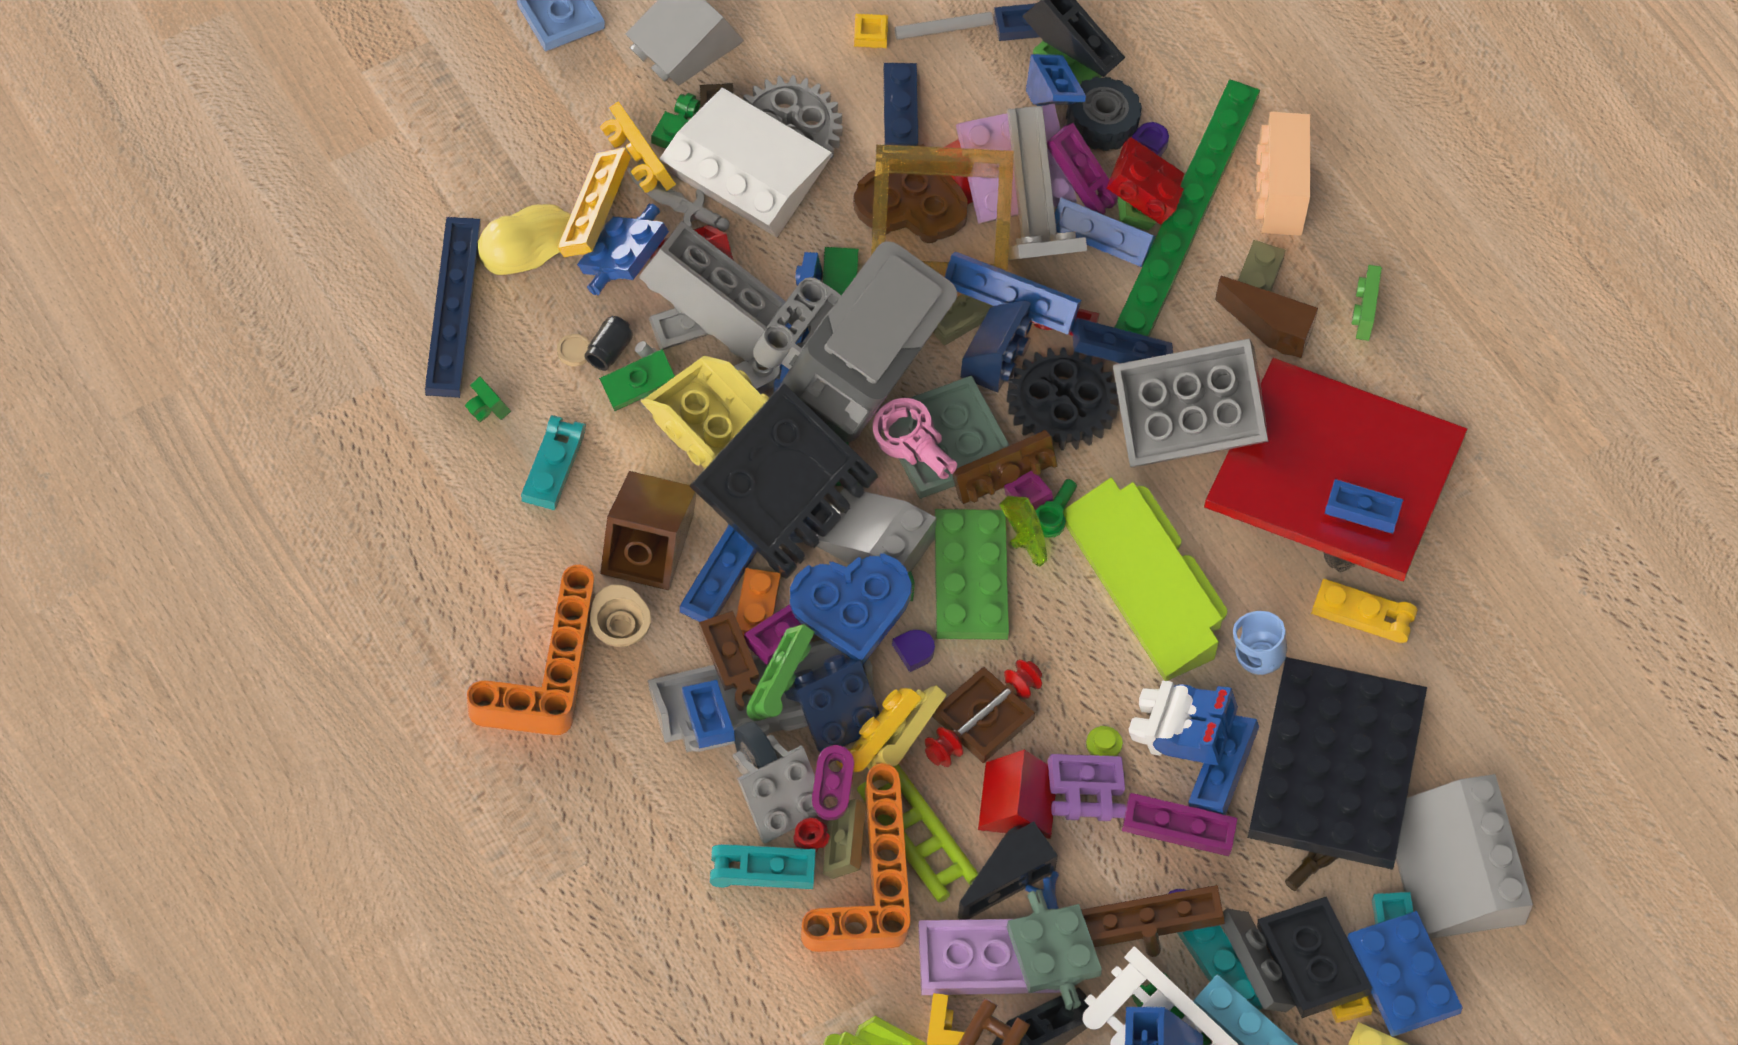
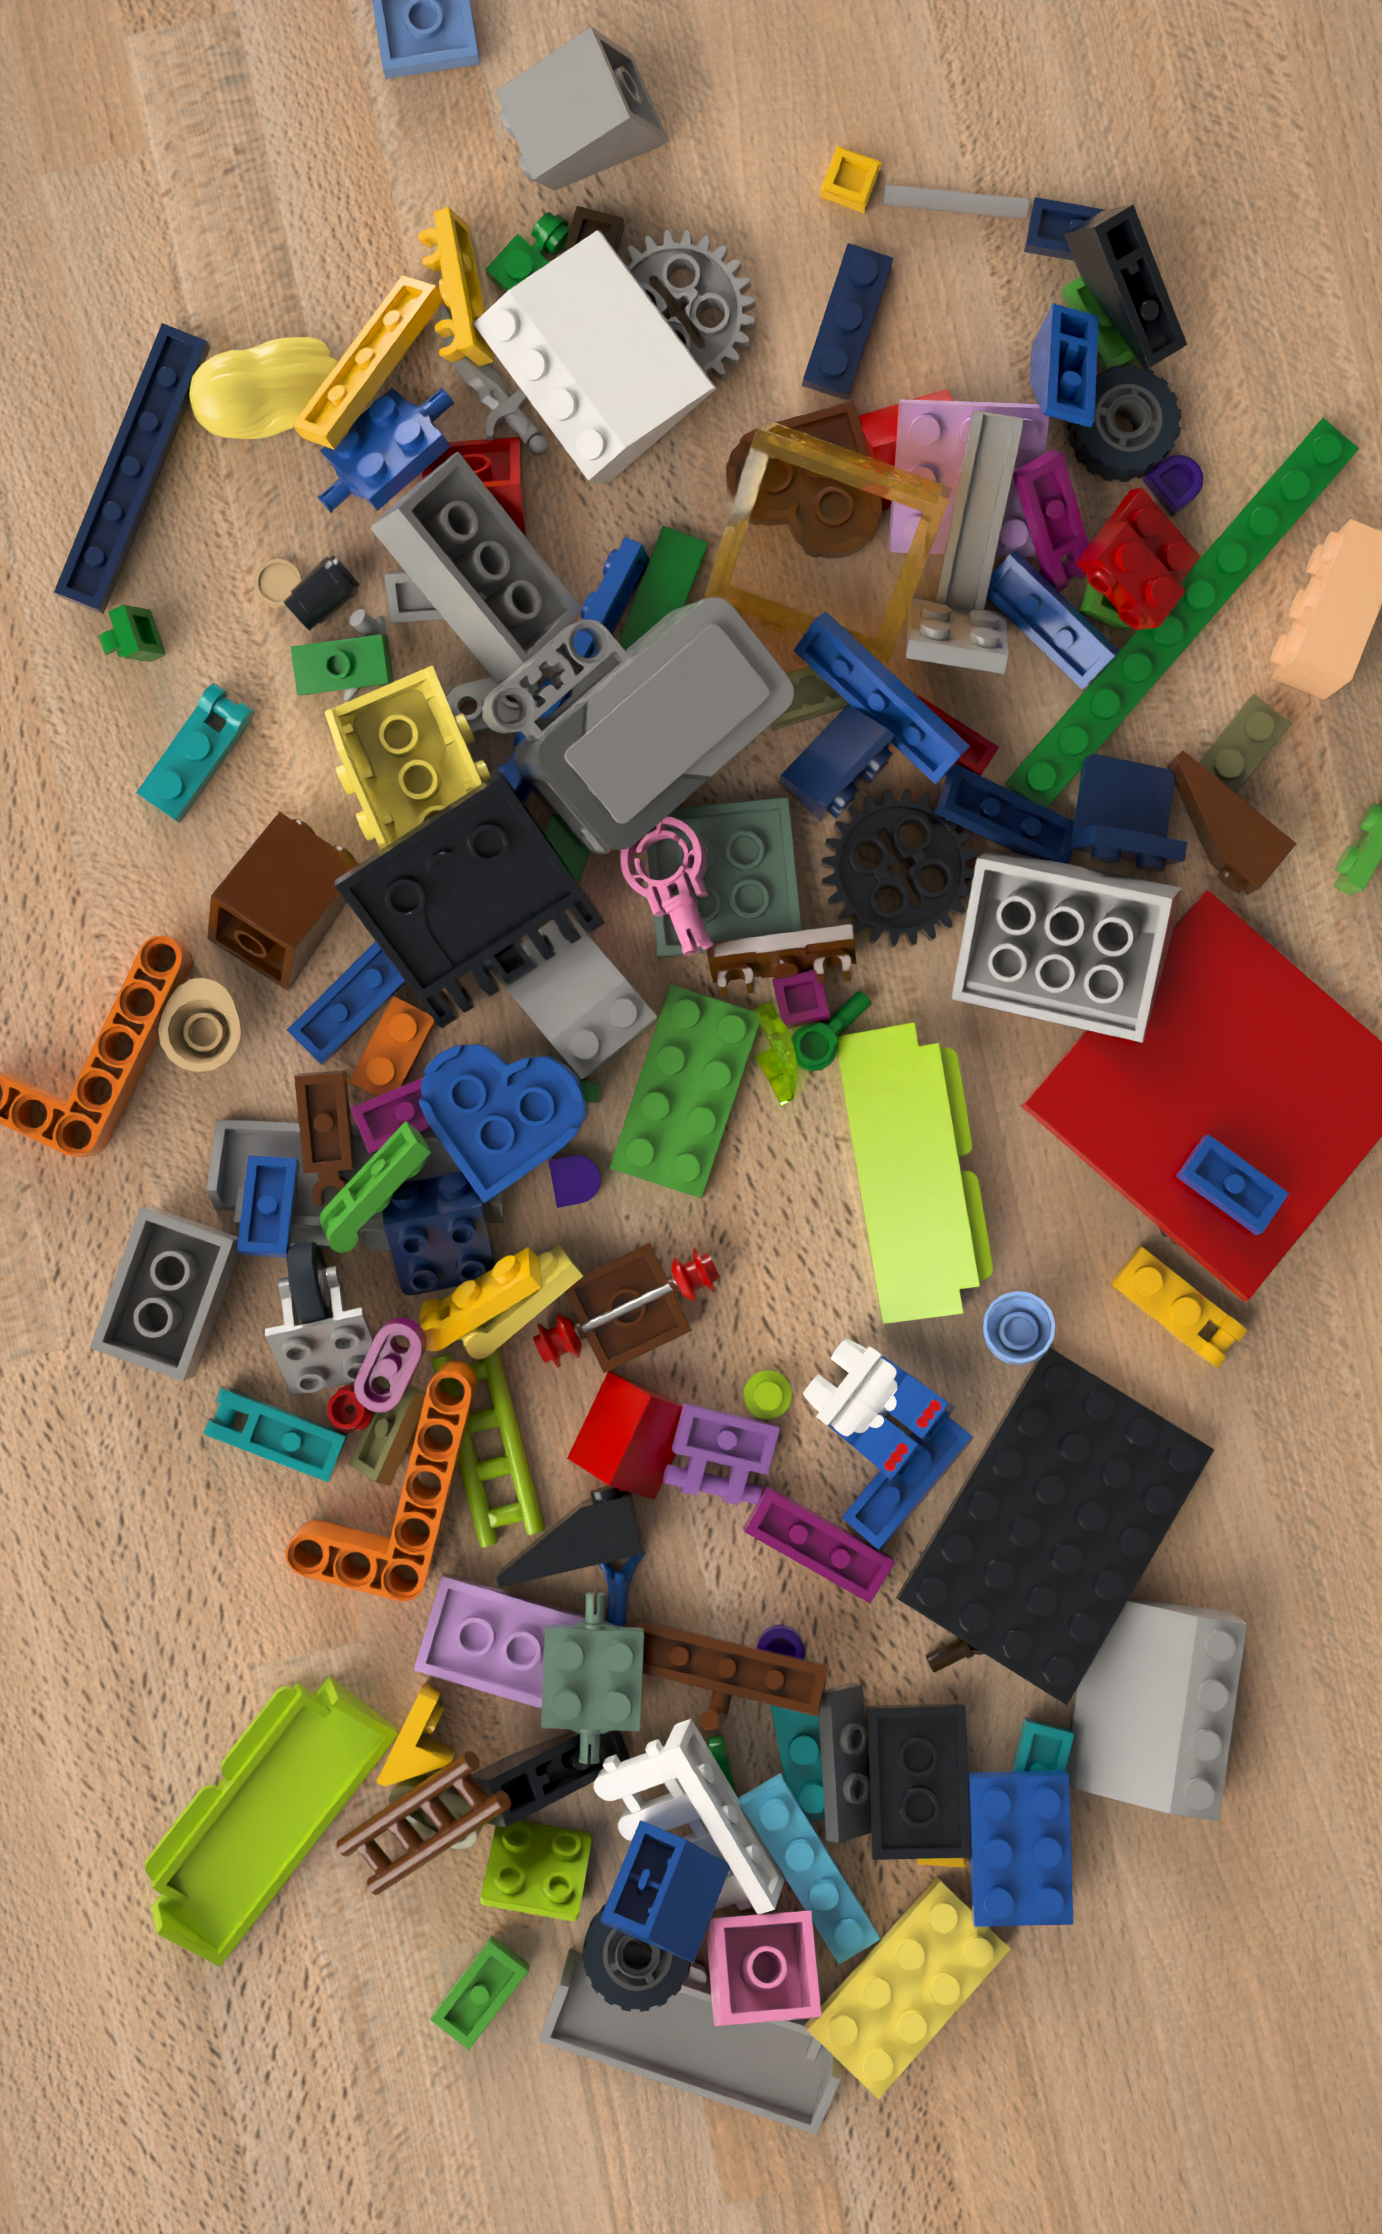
camera: 25 degrees right, 30 degrees up
(655, 788) = (166, 1293): none -> light grey brick
(1198, 322) = (1126, 814): none -> dark blue bracket

